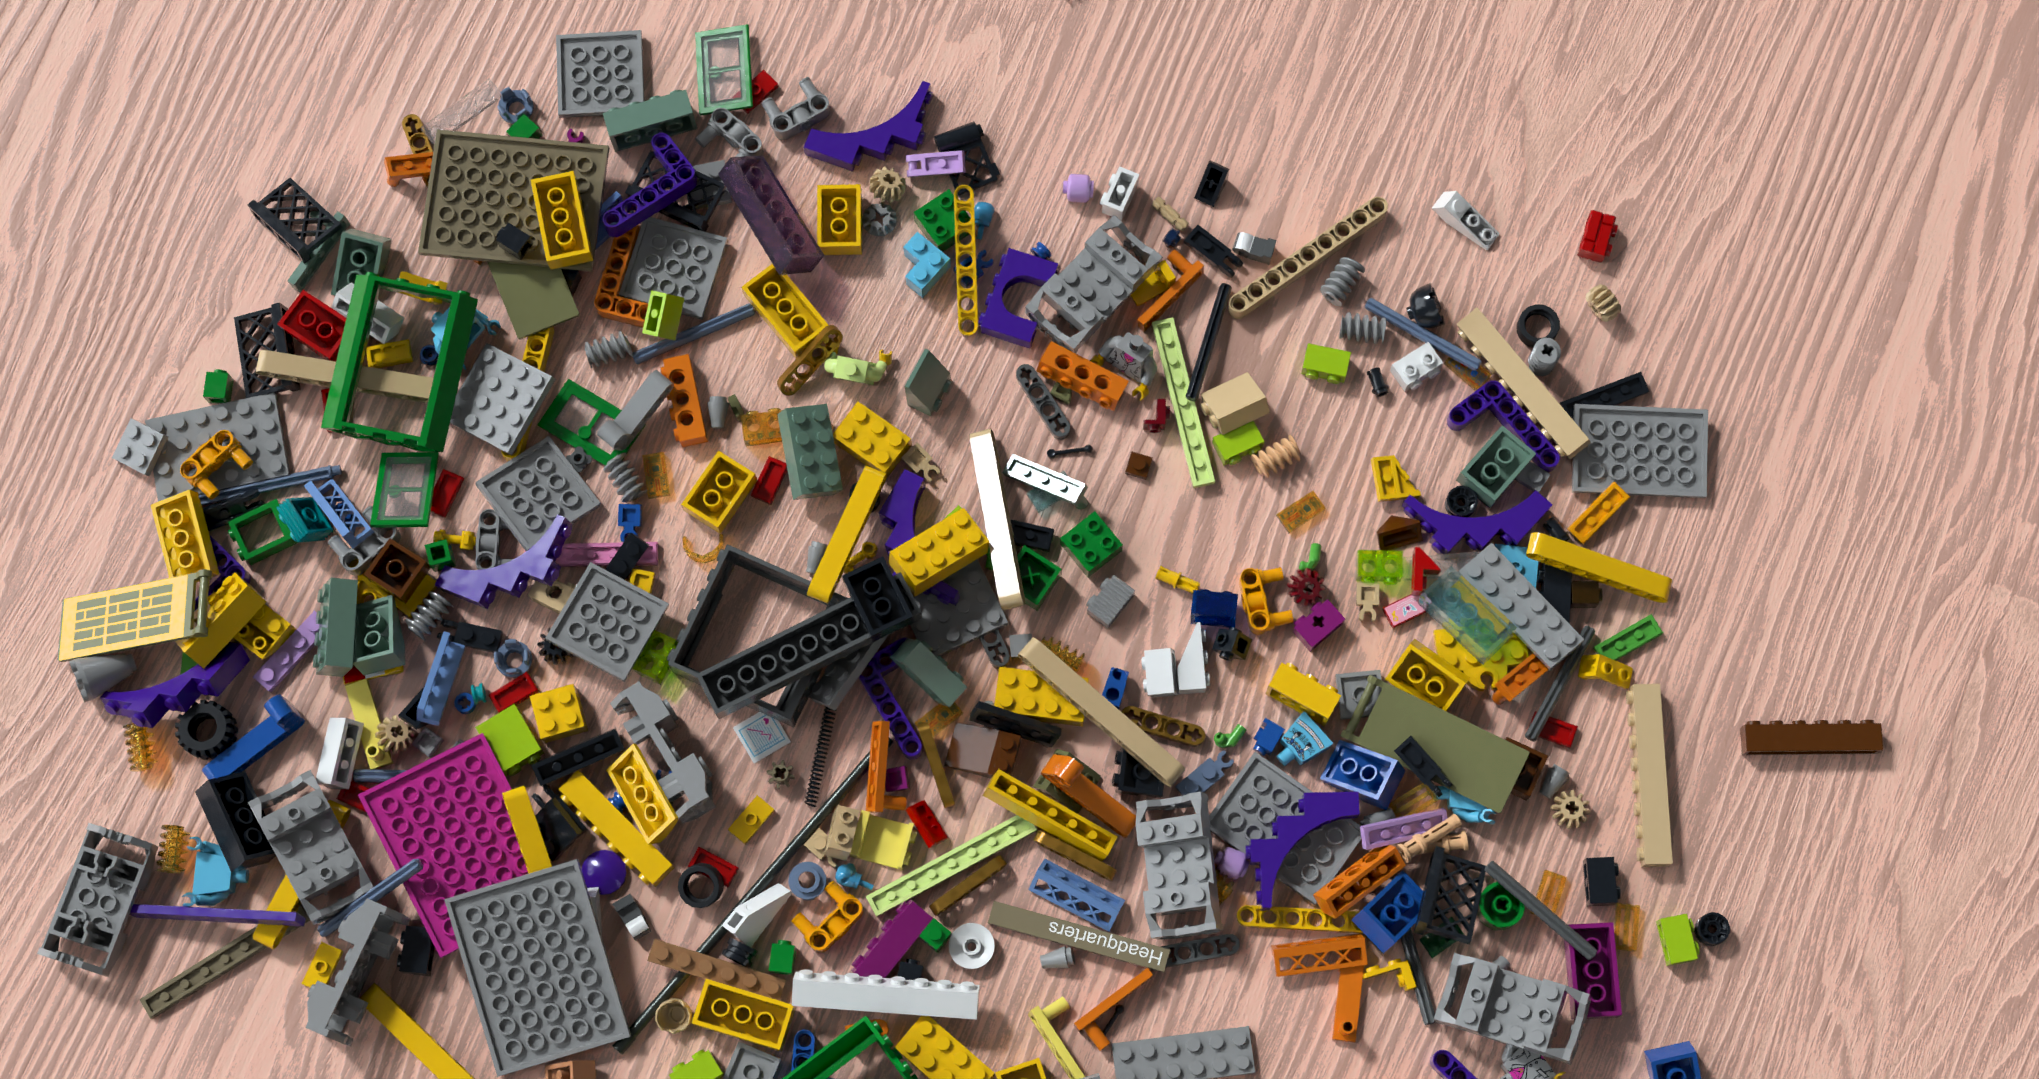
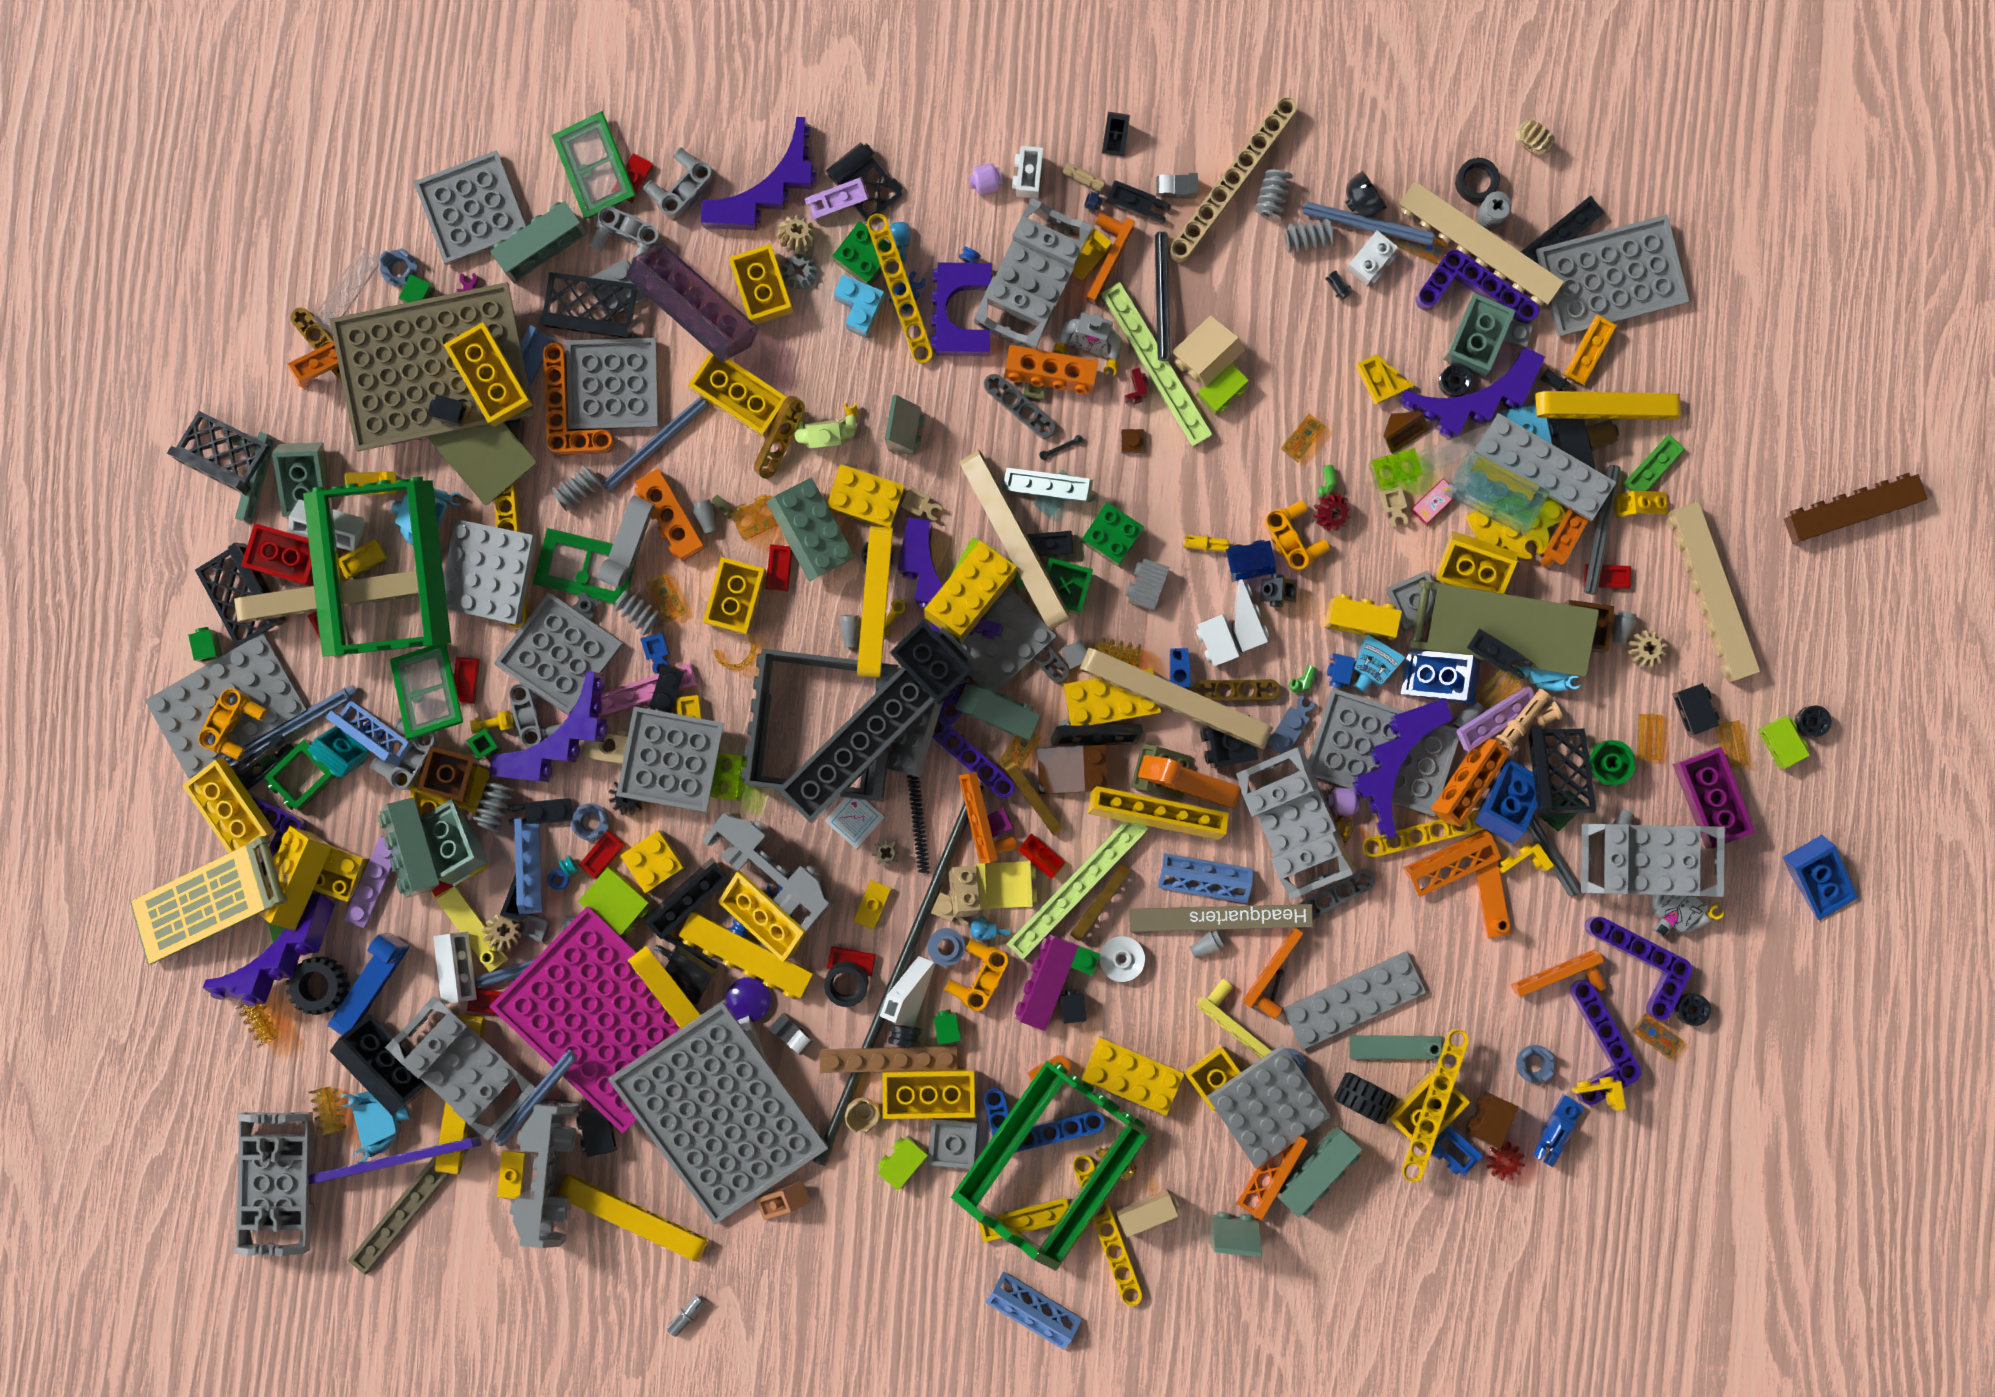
camera: 15 degrees left, 10 degrees up
(101, 673) = (194, 963): light grey cone -> none
(140, 447) = (150, 729): light grey plate -> none
(425, 351) = (396, 545): dark blue plate -> none
(655, 190) = (569, 313): dark purple beam -> none
(663, 315) = (620, 437): lime brick -> none
(885, 994) = (1058, 1034): white brick -> none
(1074, 855) = (1192, 841): pearl gold beam -> none
(1276, 456) = (1263, 391): light nougat piece -> none
(1313, 636) = (1365, 537): magenta brick -> none
(1325, 363) = (1283, 282): lime brick -> none
(1421, 565) = (1436, 457): red slope -> none
(1465, 219) = (1374, 92): white slope -> none
(1540, 910) = (1651, 757): dark grey axle -> none
(1597, 235) = (1508, 70): red brick -> none

